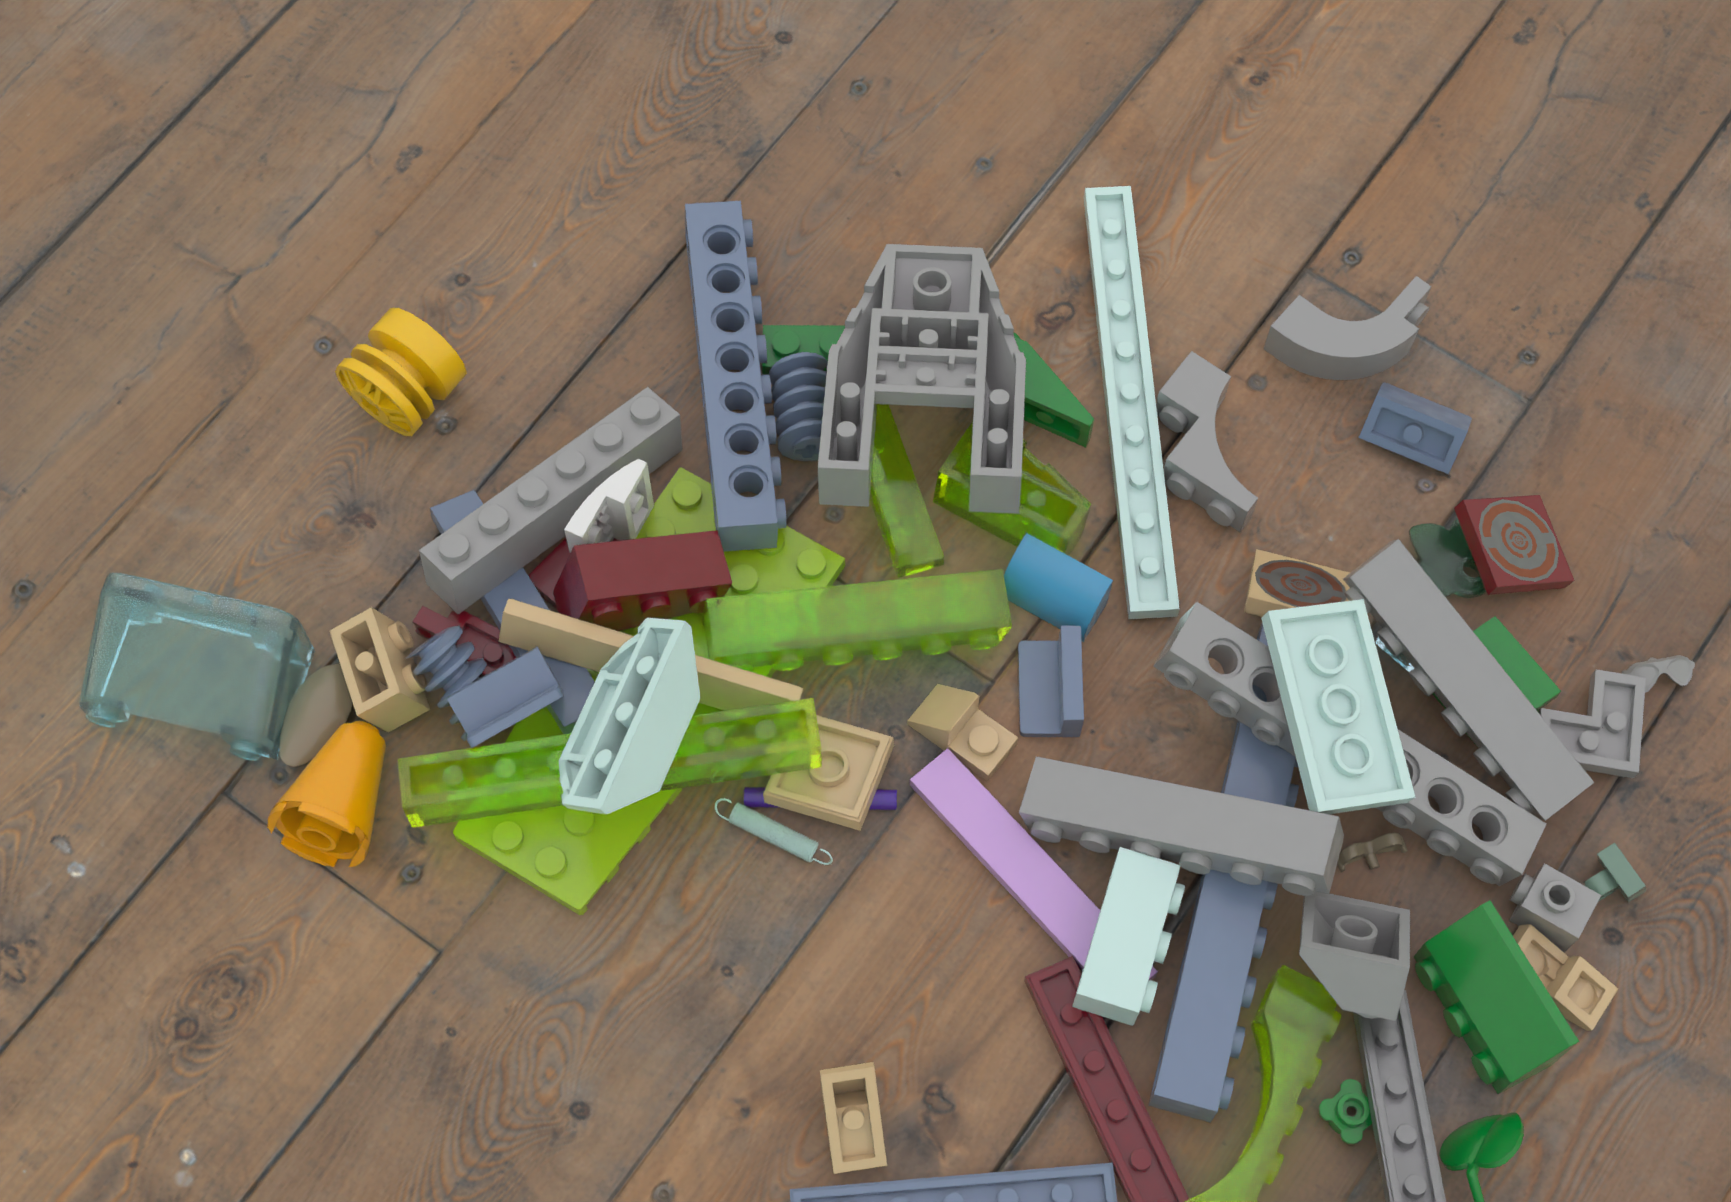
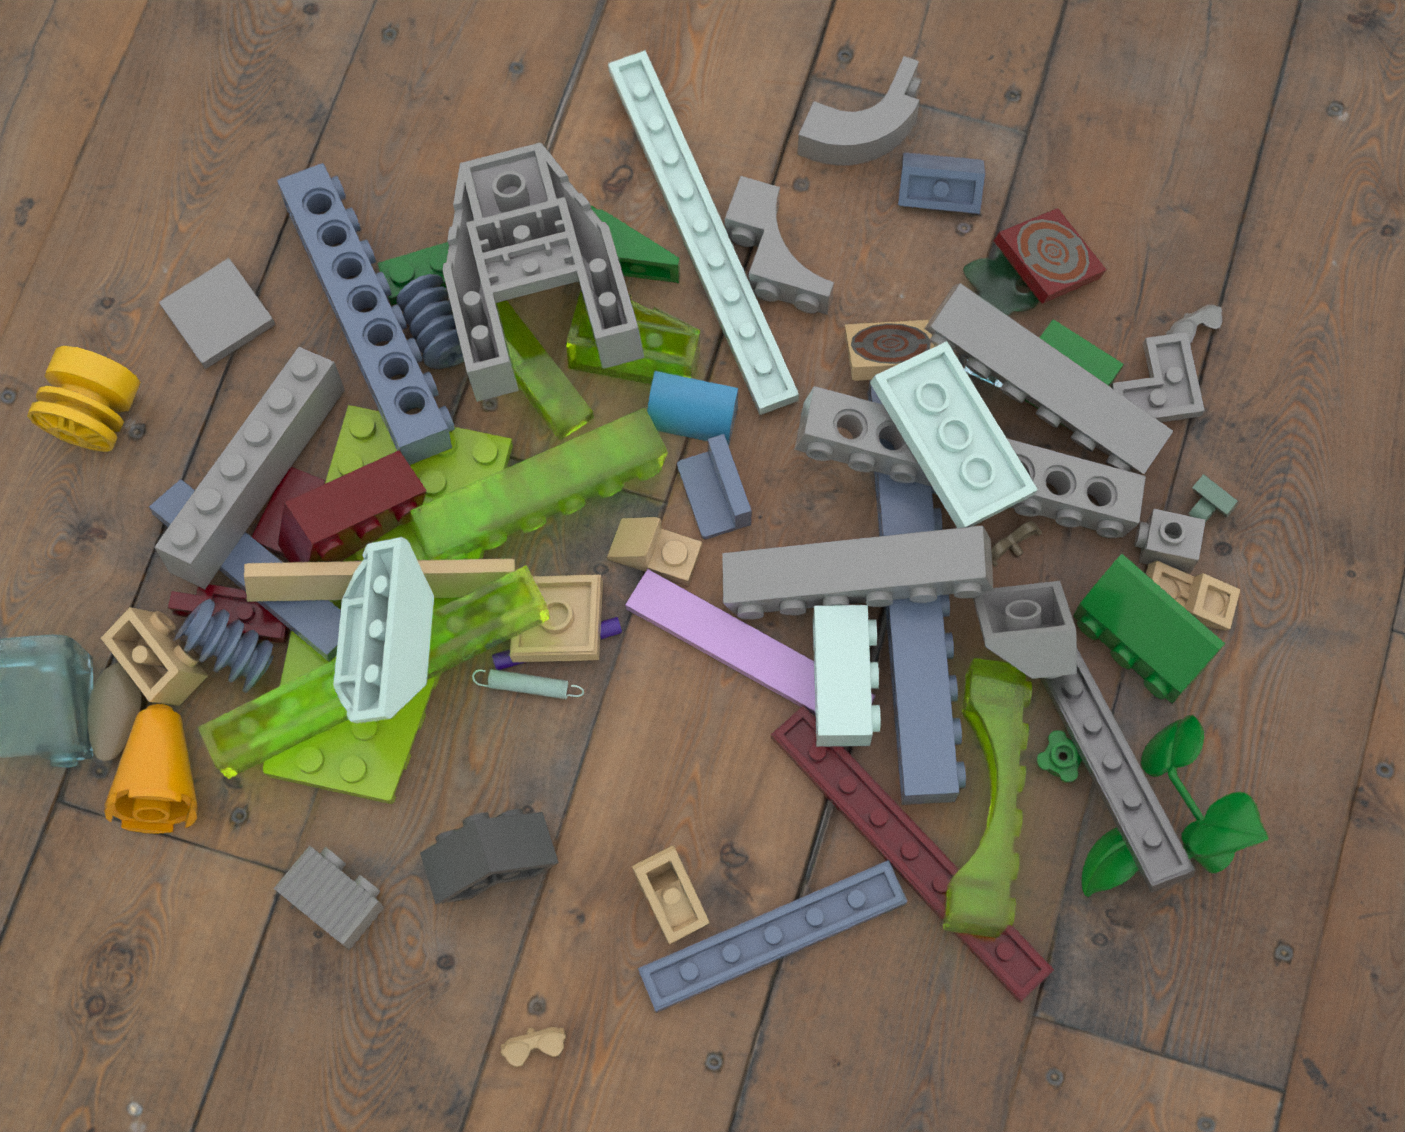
camera: 15 degrees left, 5 degrees up
(478, 994) = (330, 896): none -> light grey brick
(505, 696) = (270, 646): sand blue panel -> none
(573, 326) = (217, 313): none -> light grey tile
(614, 508) = (306, 460): white slope -> none
(665, 1003) = (487, 853): none -> dark grey brick

